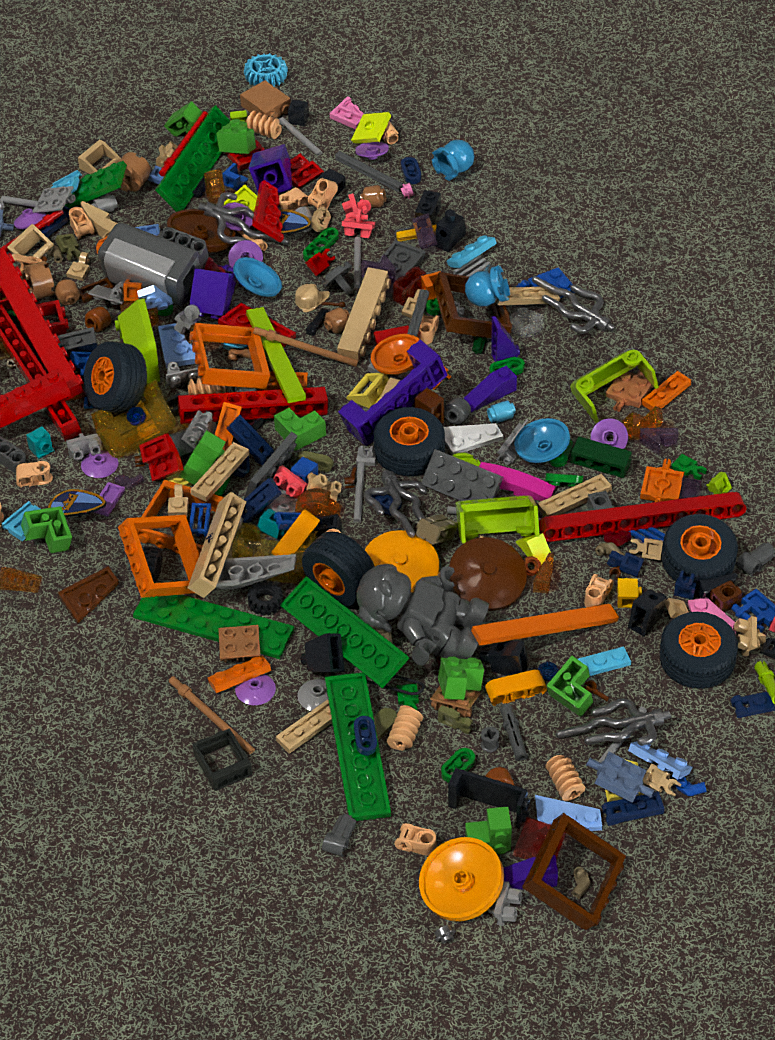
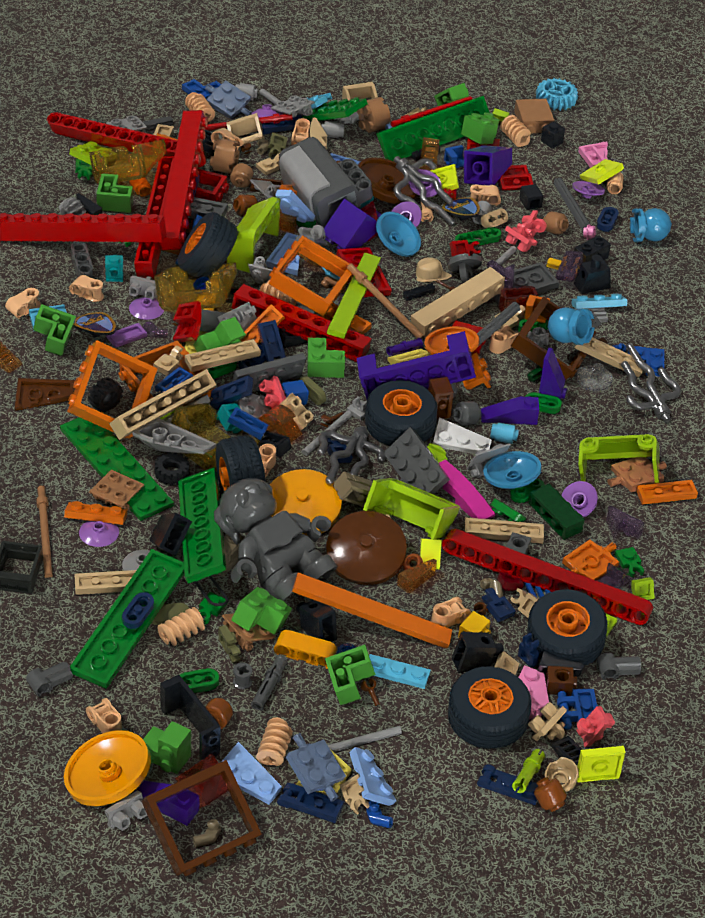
camera: 30 degrees right, 5 degrees down
(267, 213) = (451, 190): red wing -> none
(296, 534) = (245, 425): light orange beam -> none
(300, 136) = (540, 154): light grey bar -> none
(322, 193) = (513, 199): light nougat piece -> none
(336, 320) = (431, 294): medium nougat head -> none
(352, 379) = (405, 347): none -> dark purple pin
(444, 934) = (55, 804): flat silver plate -> none
(635, 421) = (616, 500): clear orange brick -> none
(637, 721) = (383, 735): flat silver plant -> none

